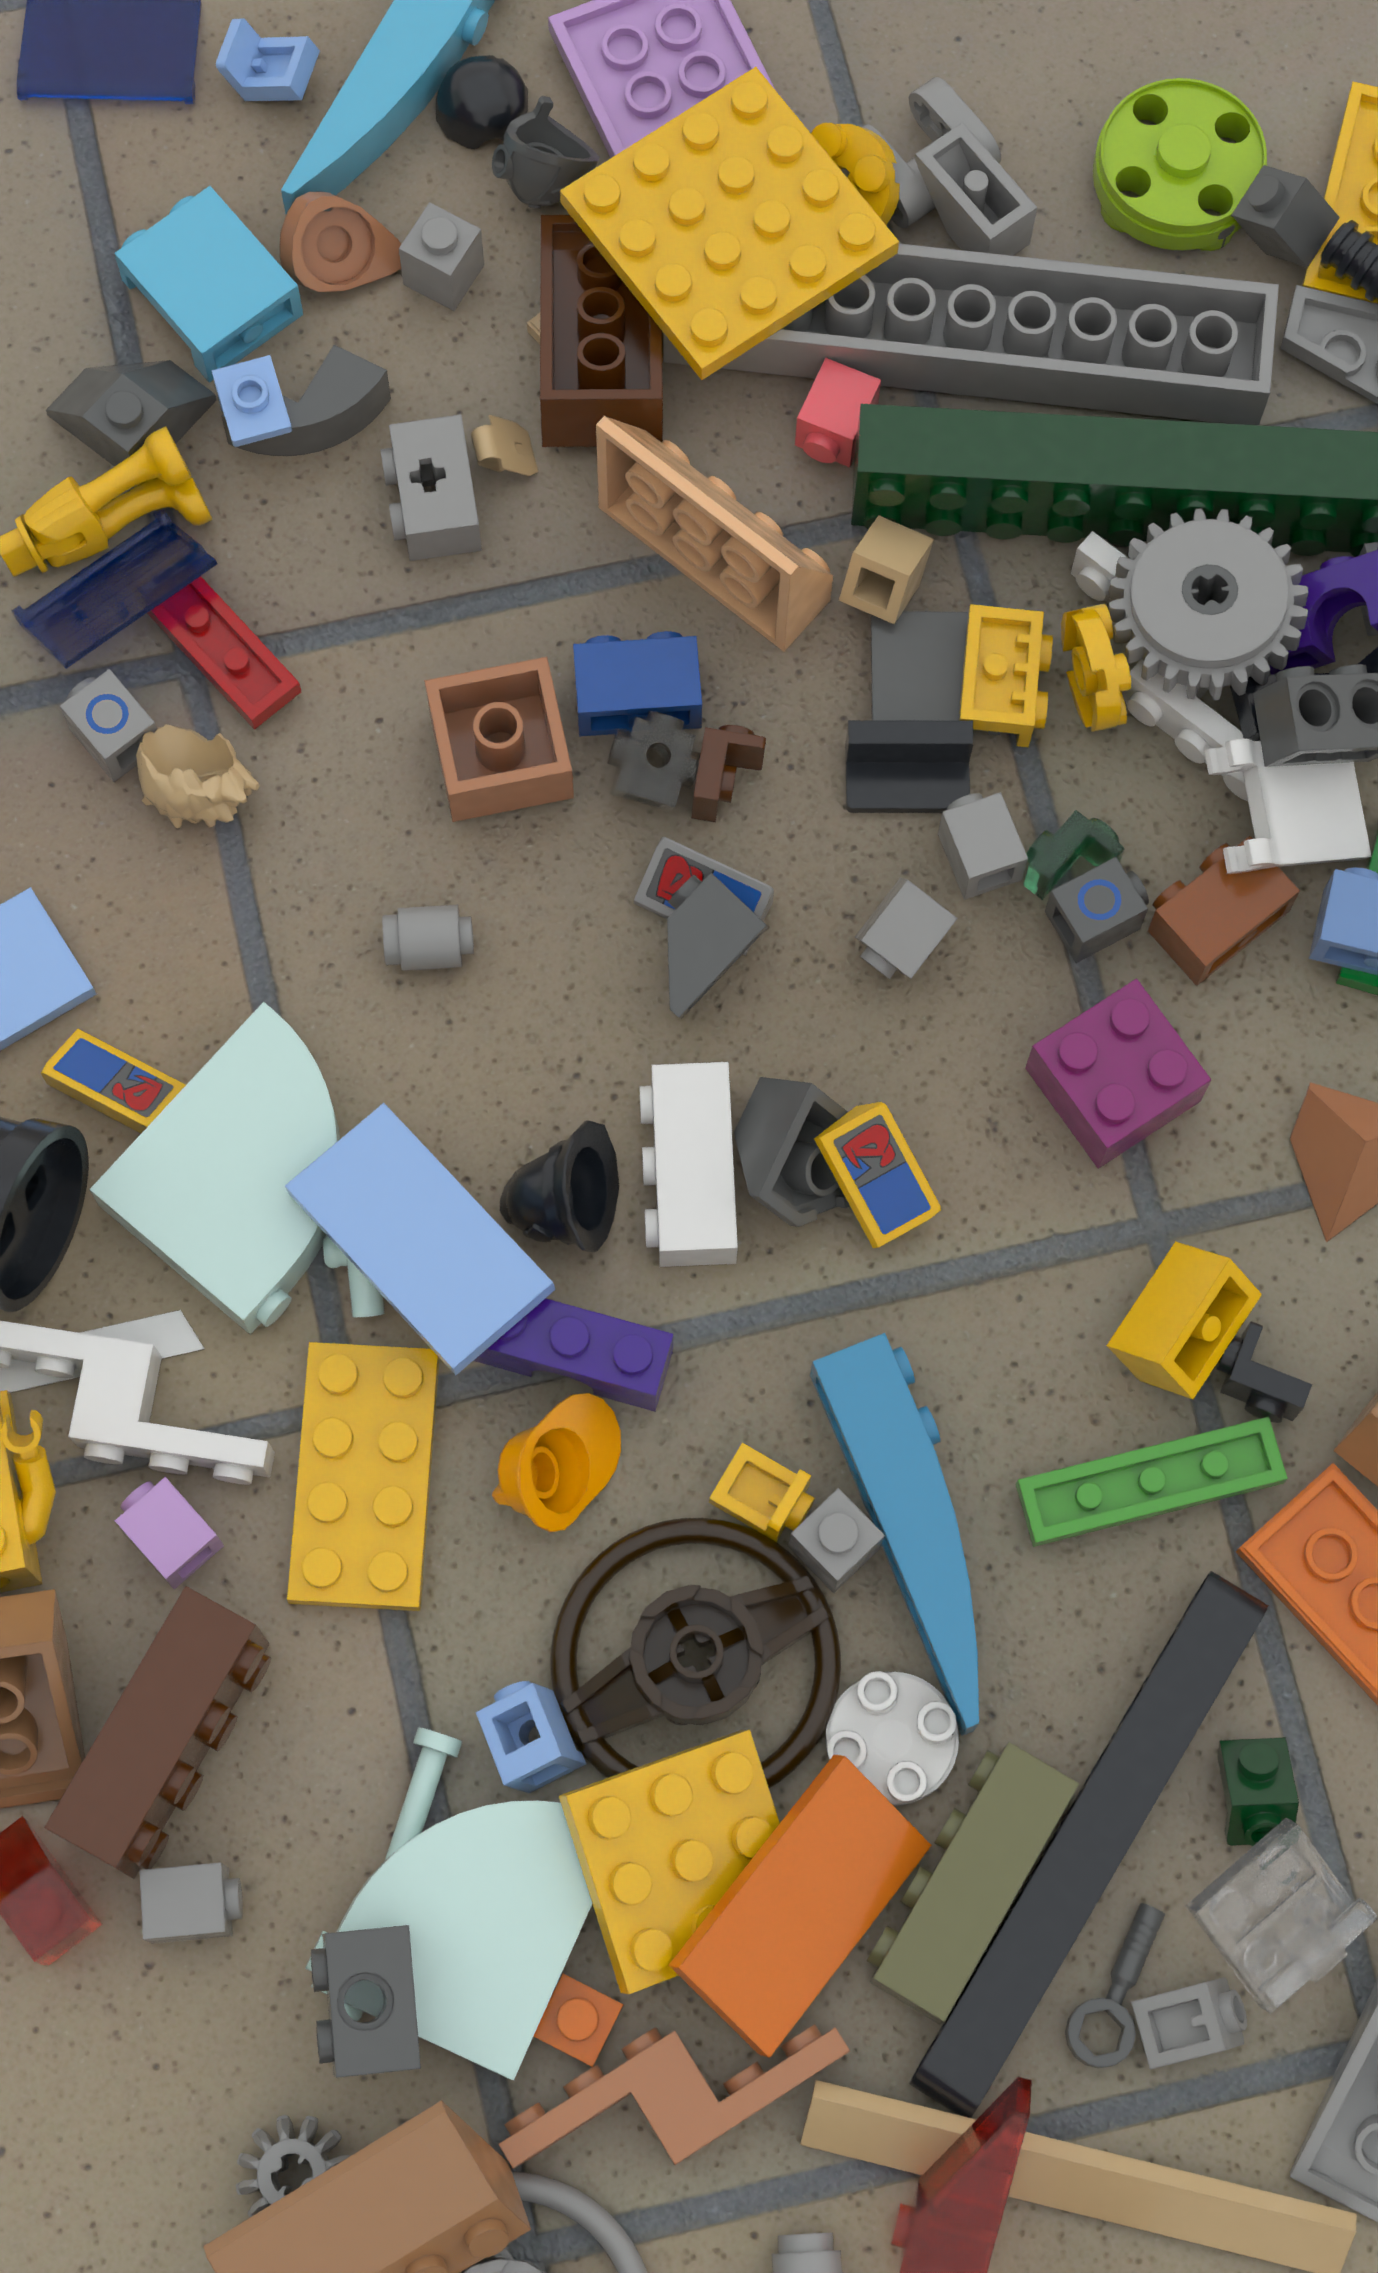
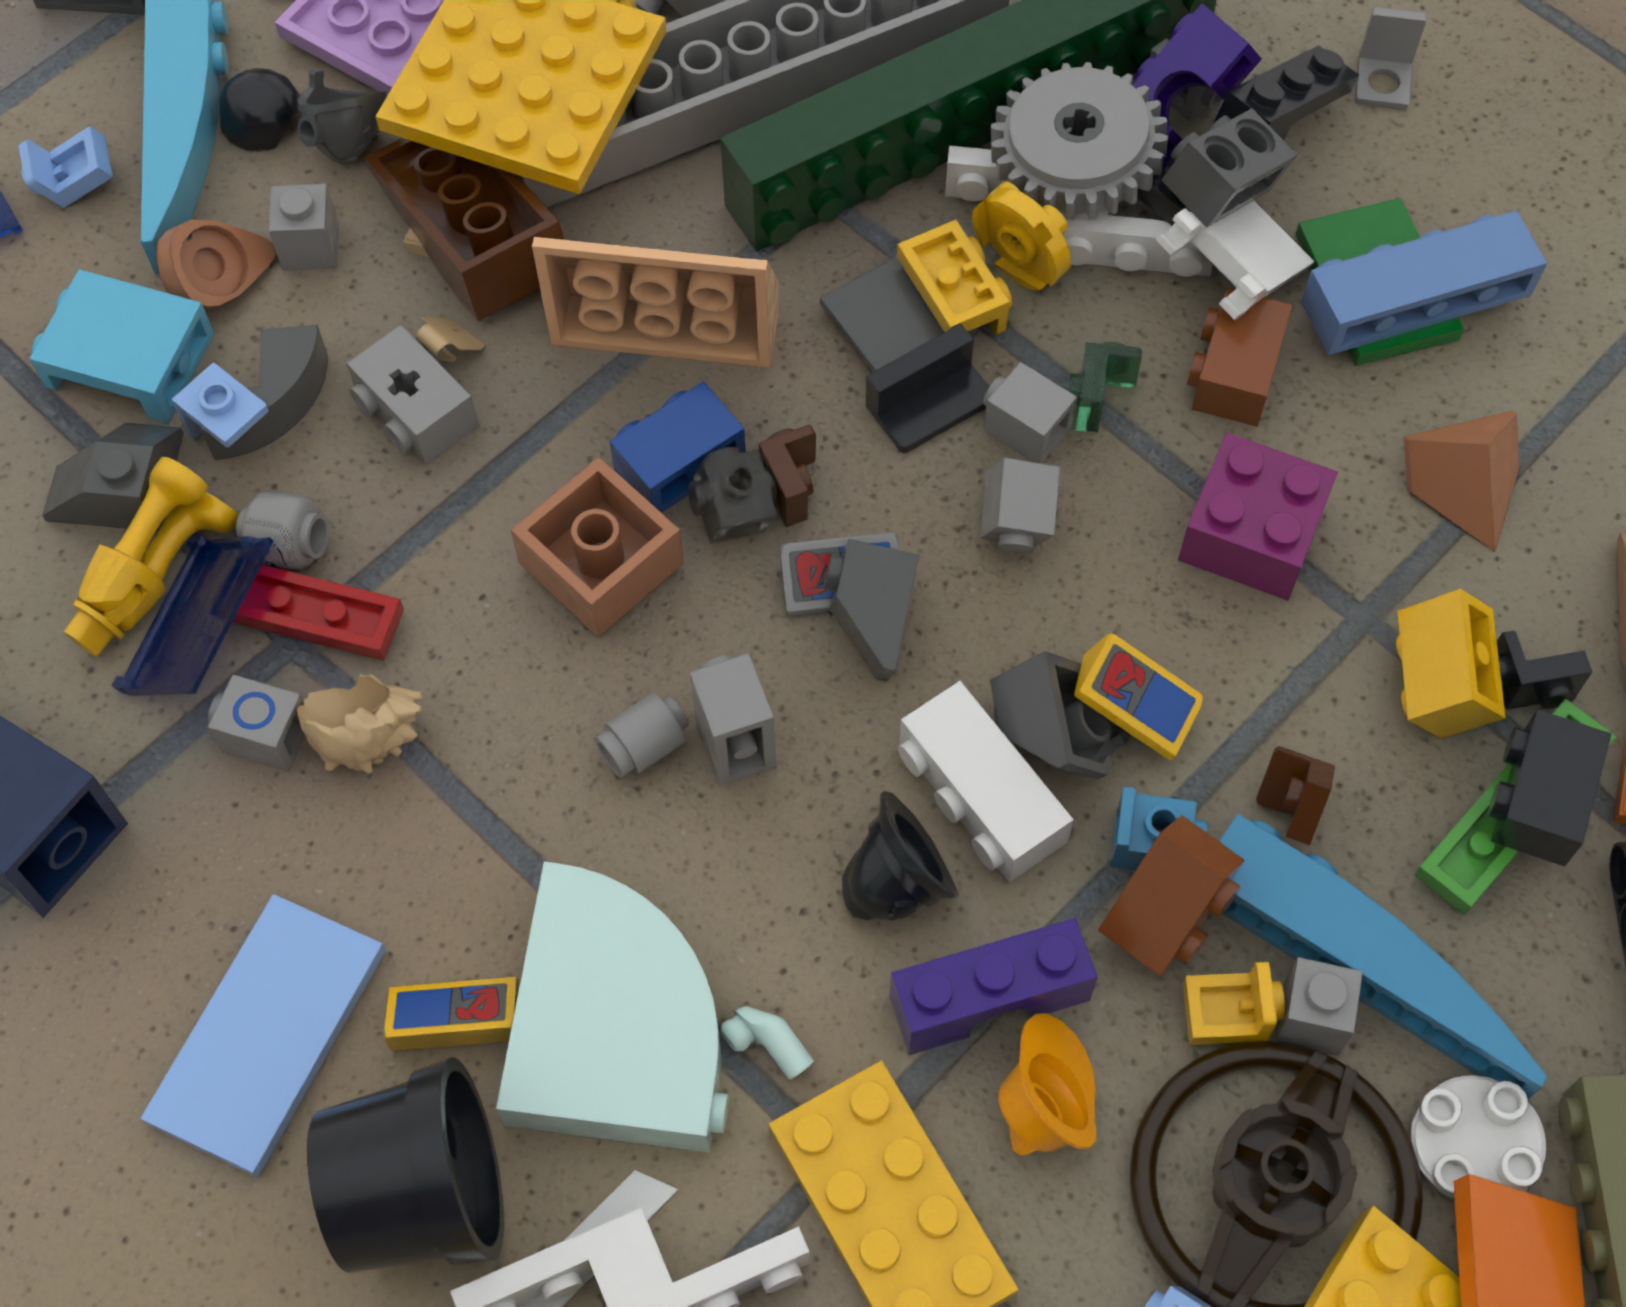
camera: 30 degrees left, 10 degrees down
(245, 551) = (292, 522): none -> light grey head
(420, 1238) = (815, 969): light blue tile -> none
(506, 973) = (733, 718): none -> light grey brick
(772, 1368) = (1172, 896): none -> dark orange brick
(812, 1330) = (1136, 820): none -> dark azure brick
(831, 412) = (693, 174): coral brick -> none
(886, 569) = (813, 258): tan brick -> none
(962, 1345) = (1298, 788): none -> reddish brown bracket
(1097, 908) = (1149, 409): dark grey brick -> none
(1177, 1482) = (1549, 787): none -> black brick

